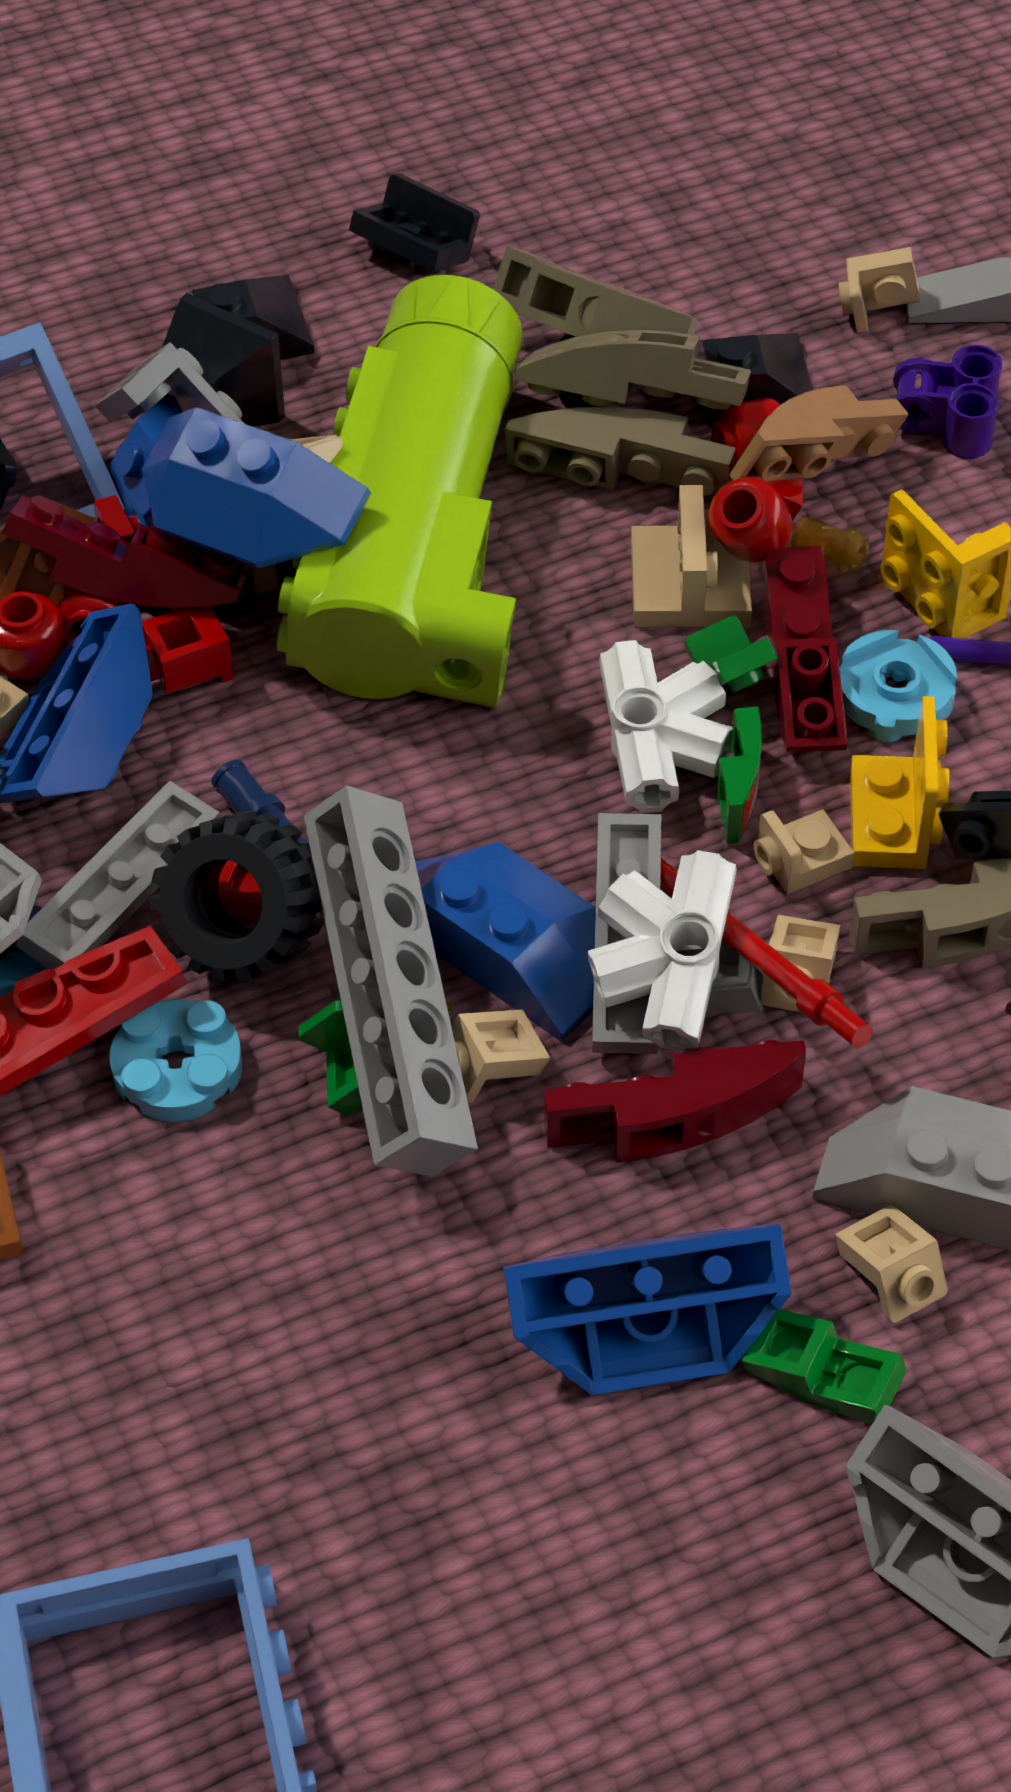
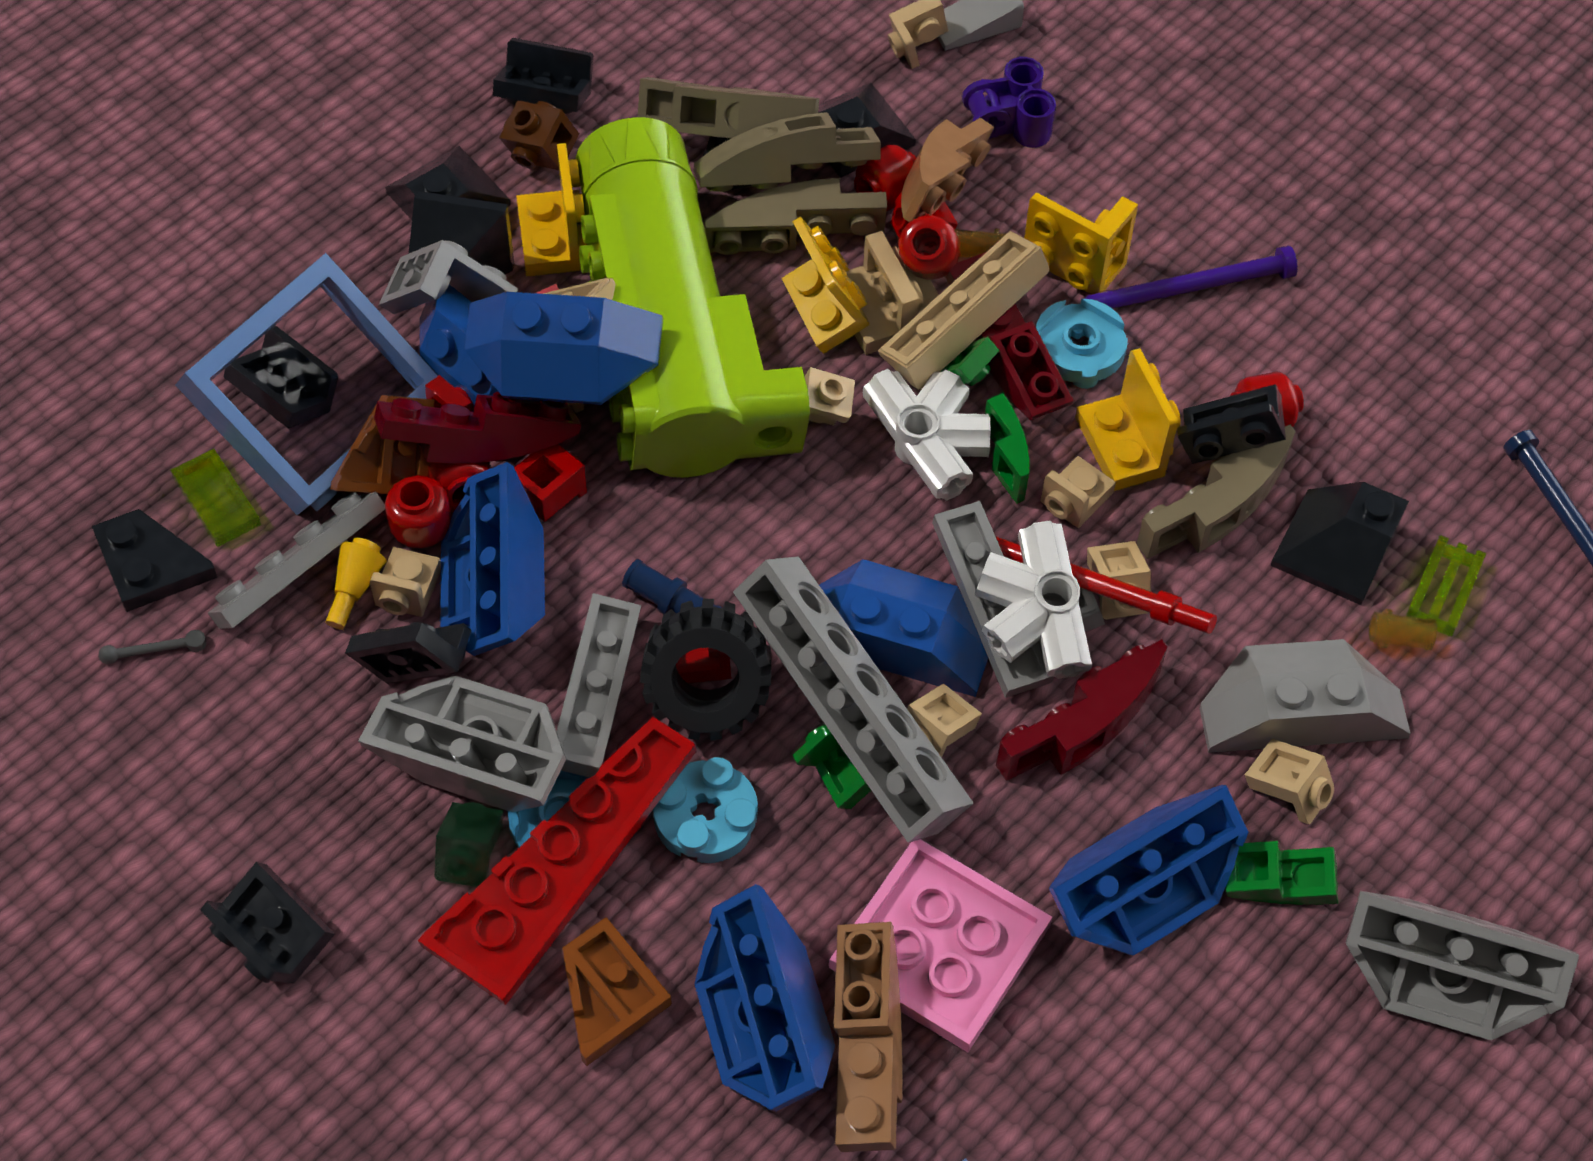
camera: 25 degrees left, 5 degrees up
(120, 1280) = (762, 1003): none -> blue wedge
(220, 1367) = (869, 1037): none -> medium nougat slope
(329, 372) = (550, 223): none -> yellow bracket
(364, 1296) = (954, 940): none -> bright pink plate
(369, 280) = (534, 133): none -> reddish brown brick
(544, 649) = (829, 396): none -> tan bracket
(610, 533) = (824, 293): none -> yellow bracket
(761, 600) = (965, 309): none -> tan slope

